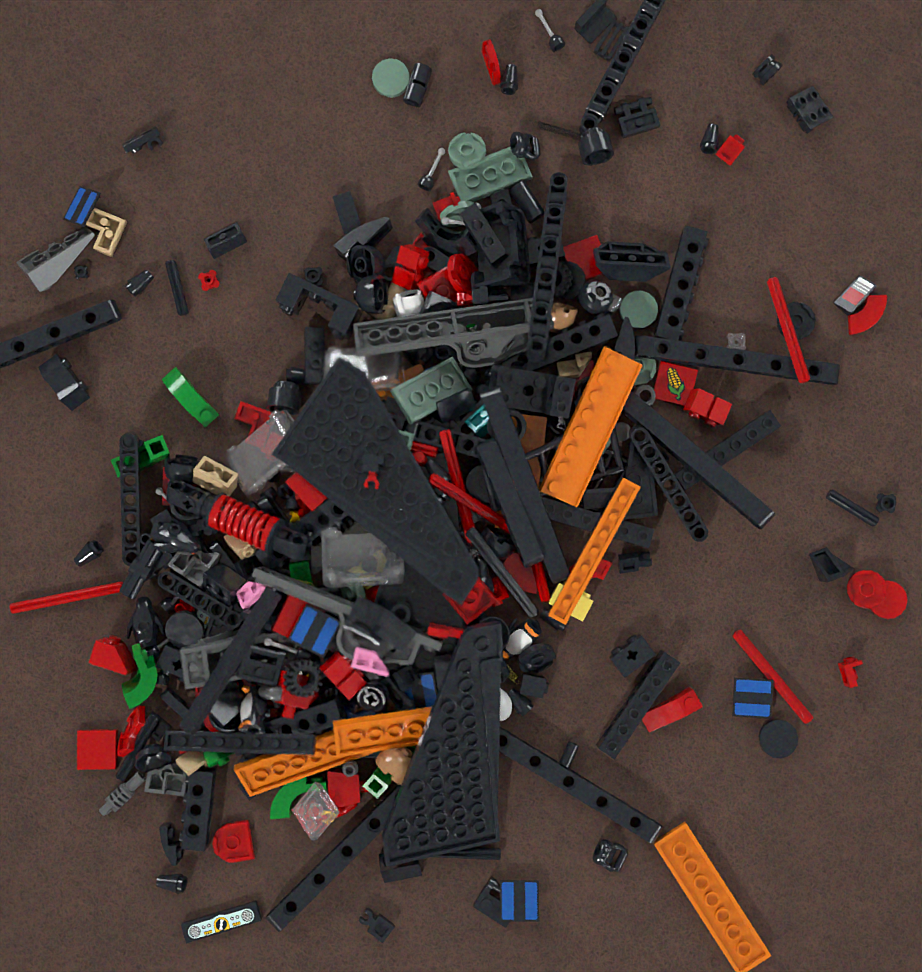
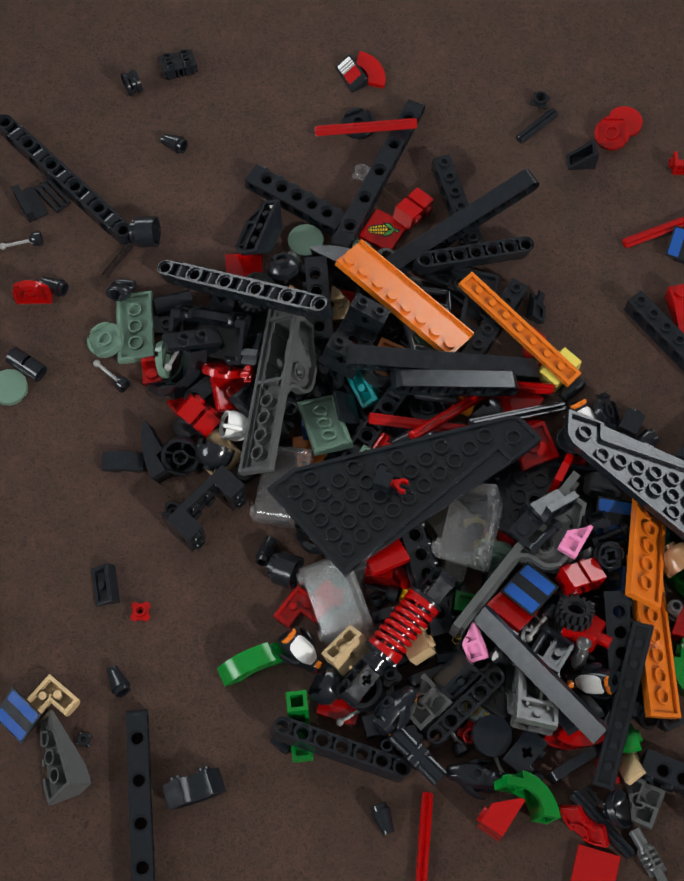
camera: 75 degrees left, 20 degrees down
(176, 287) = (136, 646): black axle -> none
(211, 434) = (299, 650): none -> animal
(314, 355) = (252, 530): black plate -> none
(639, 122) = (136, 193): black plate -> none
(641, 655) = (623, 332): black brick -> none
(731, 149) = (189, 129): red bracket -> none

